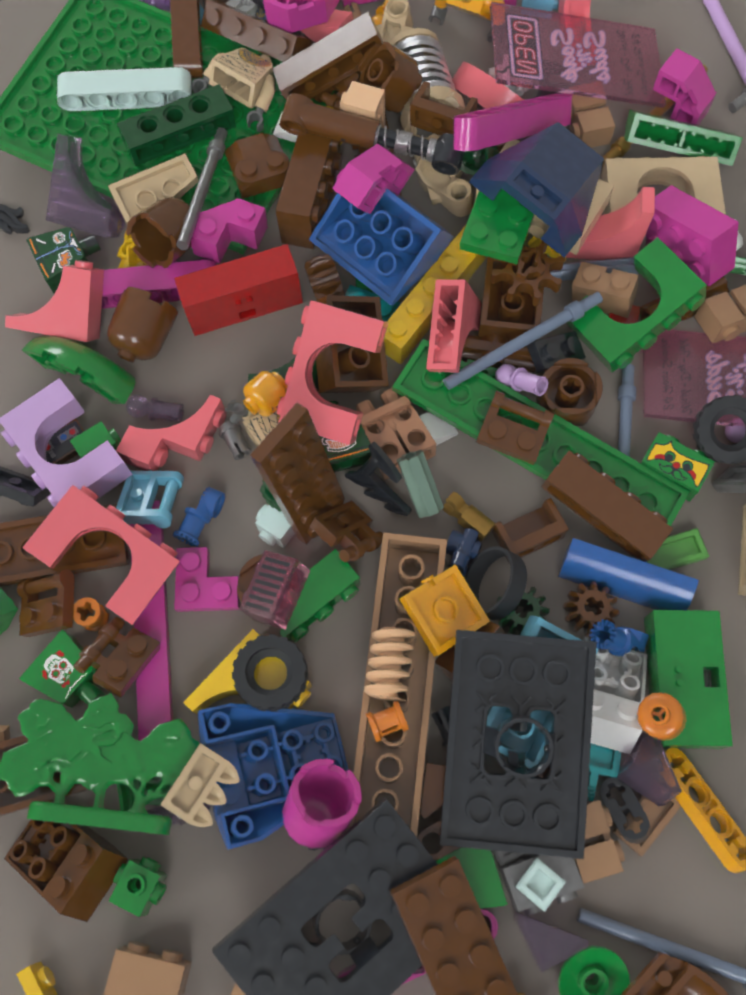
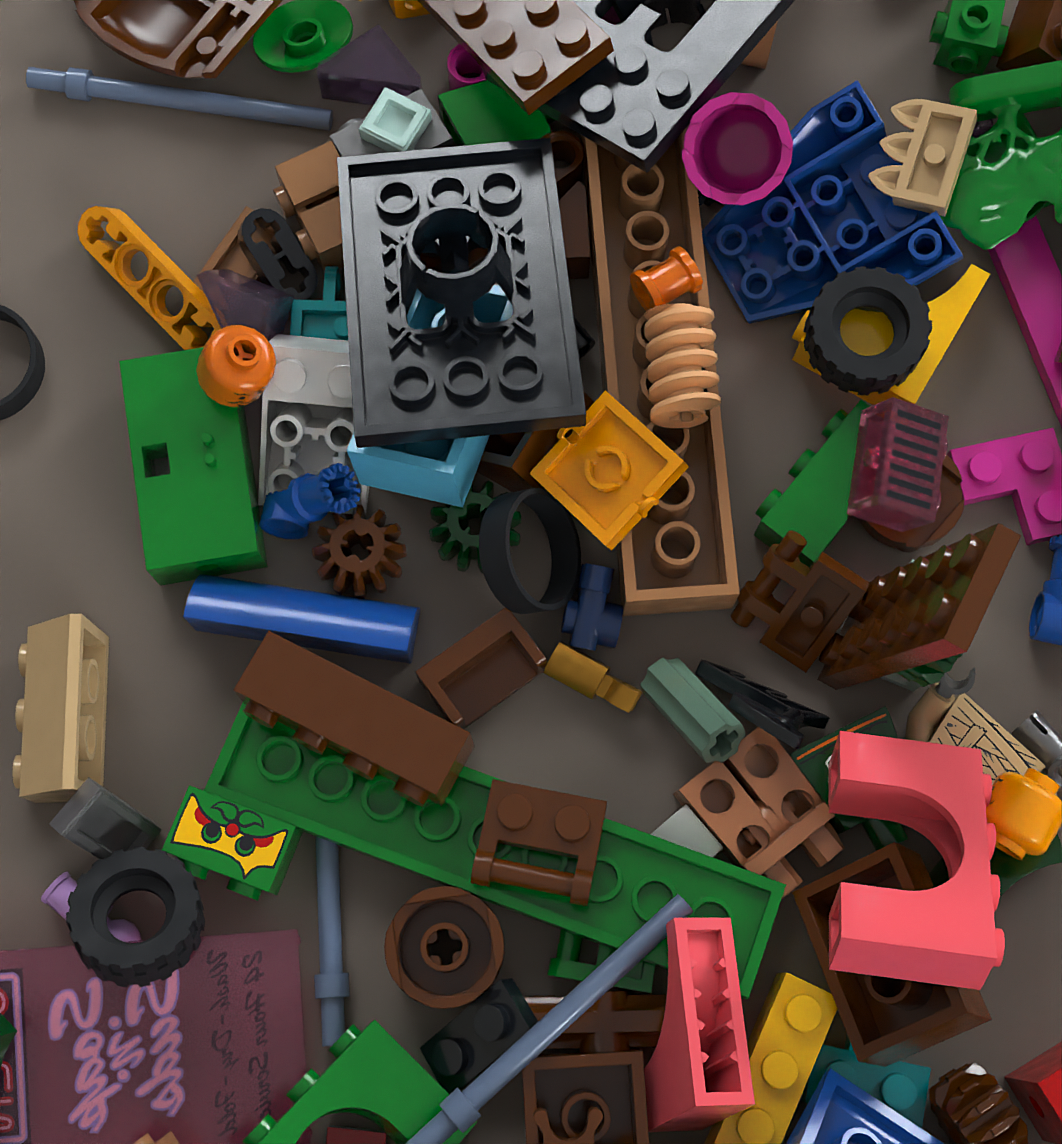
camera: 165 degrees right, 5 degrees up
(520, 379) = (544, 944): lavender pin -> none
(680, 550) = (208, 692): bright green tile -> none

